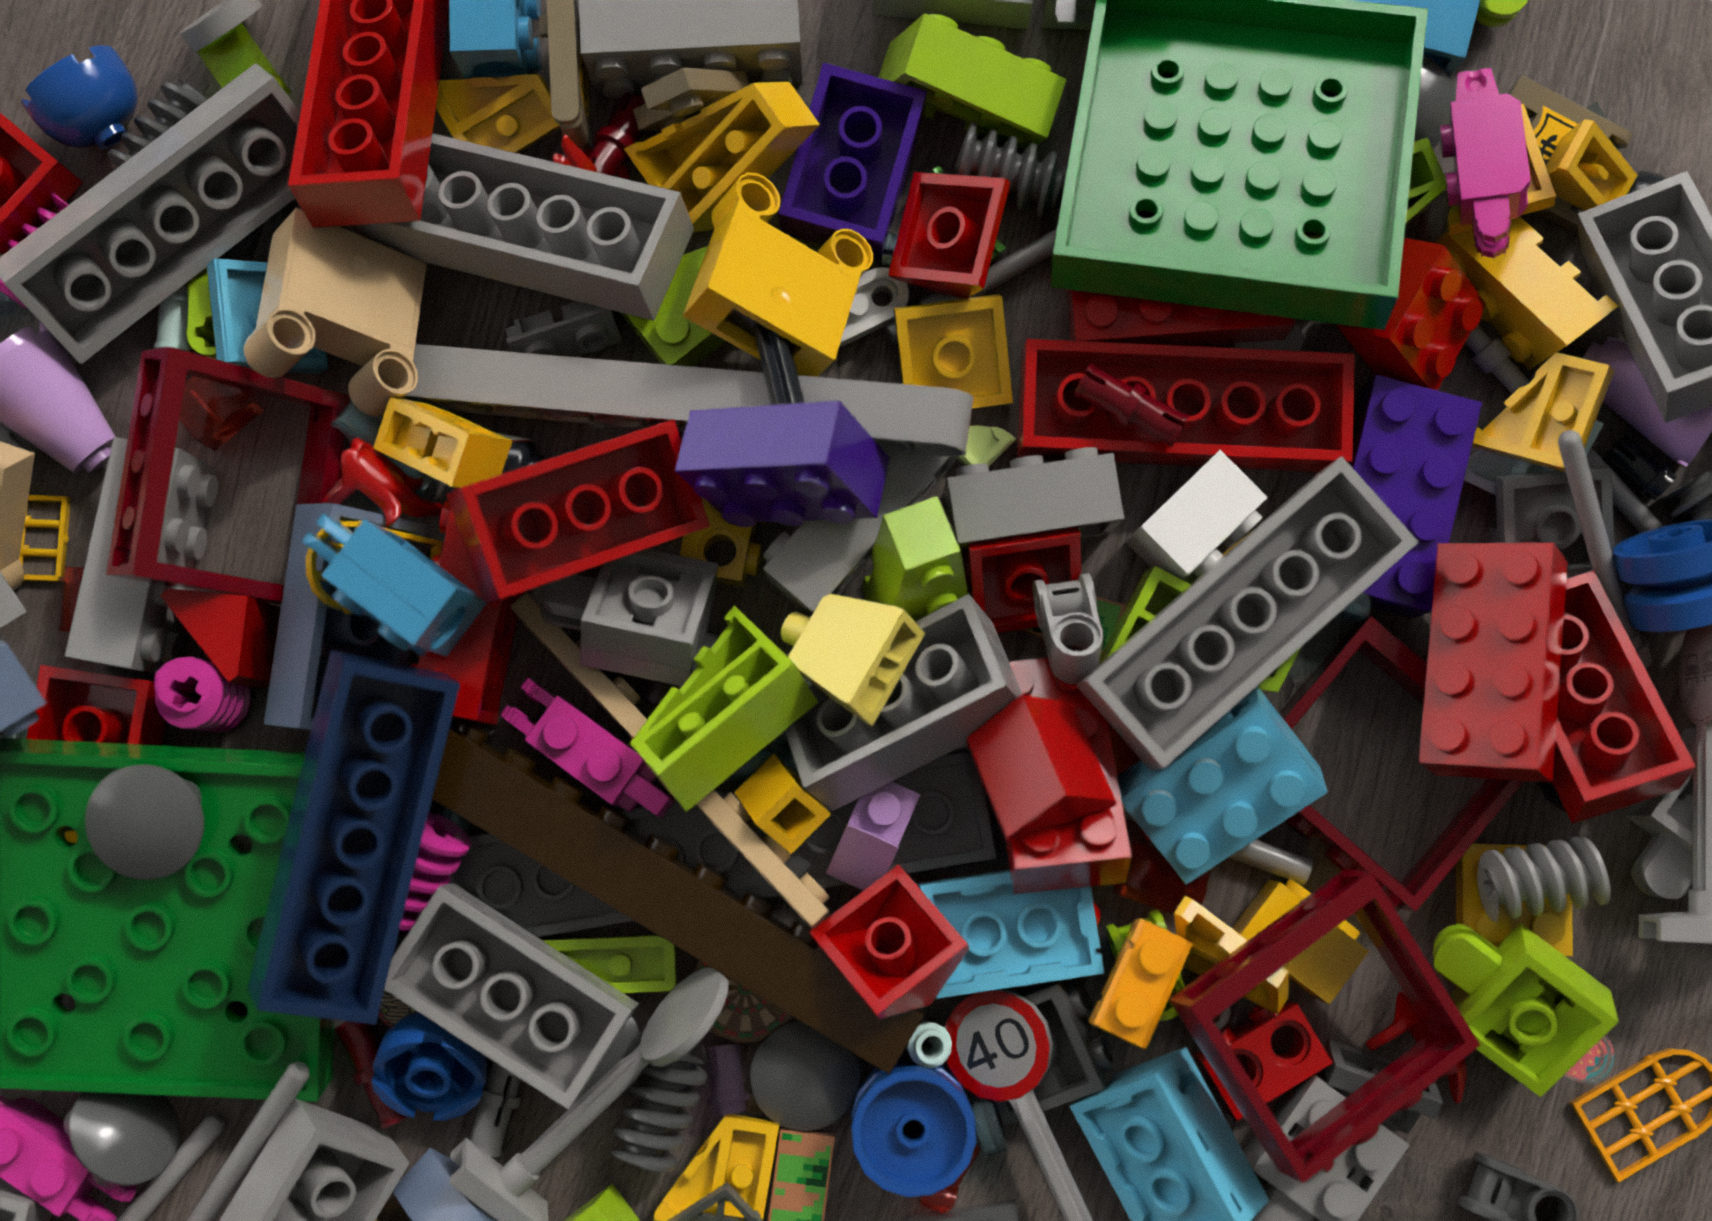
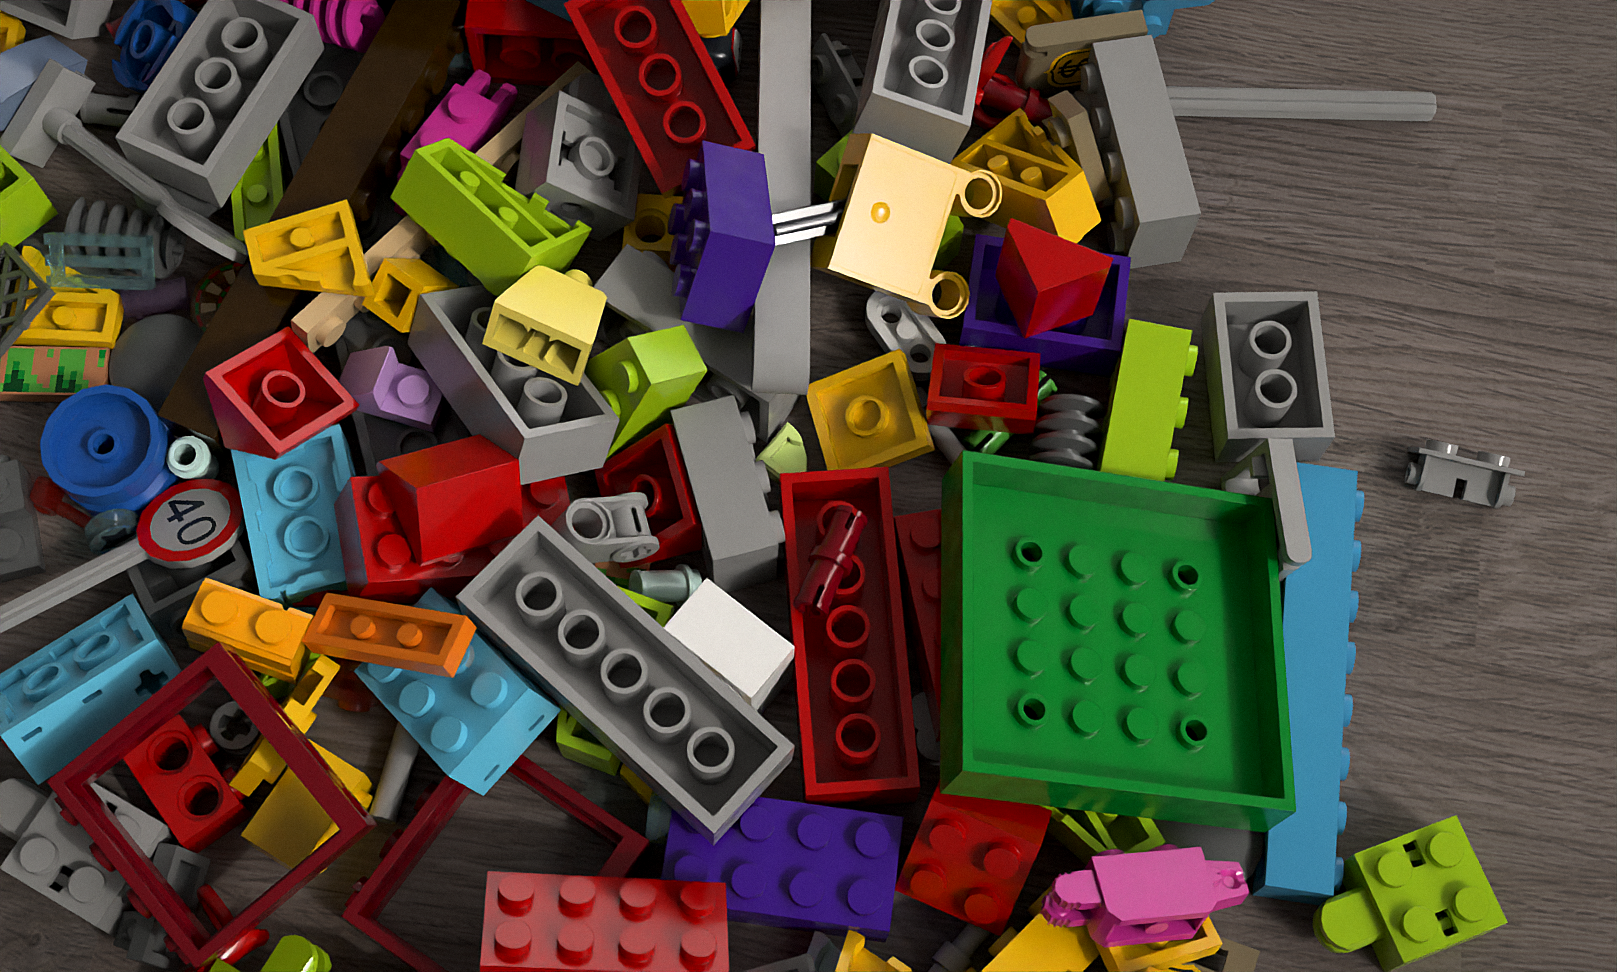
camera: 80 degrees right, 15 degrees down
(704, 1133) = (58, 260): none -> clear light blue tile
(736, 900) = (311, 252): none -> yellow wing
(866, 146) = (1048, 278): none -> red slope
(1105, 565) = (666, 584): none -> light aqua pin
(1179, 840) = (390, 634): none -> orange plate

